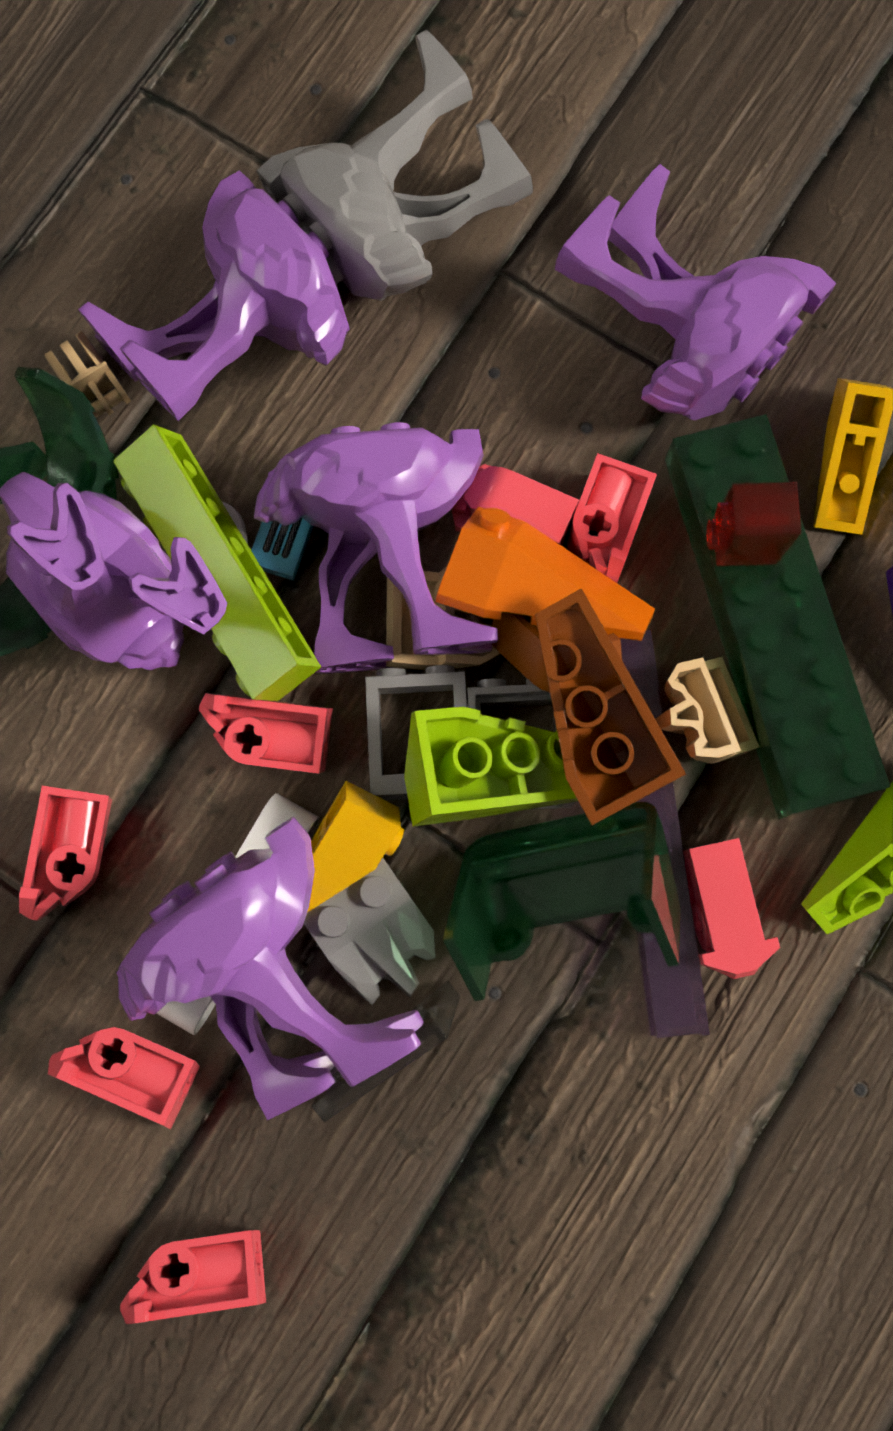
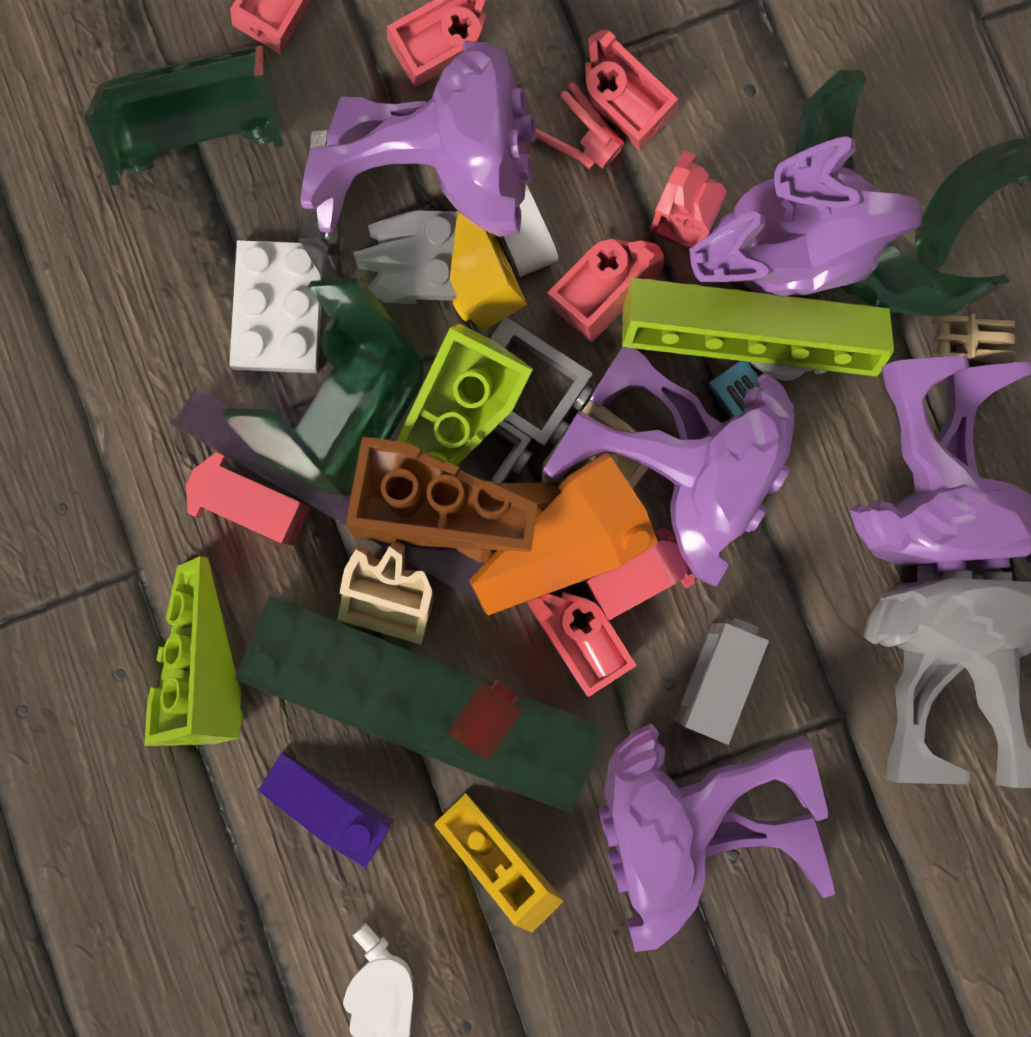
camera: 120 degrees right, 5 degrees up
(129, 838) = (600, 142): none -> coral plant
(141, 704) = (688, 204): none -> coral piece
(384, 1285) = (182, 106): none -> clear green windscreen
(519, 1031) = (273, 310): none -> white plate
(556, 374) = (721, 679): none -> light grey window

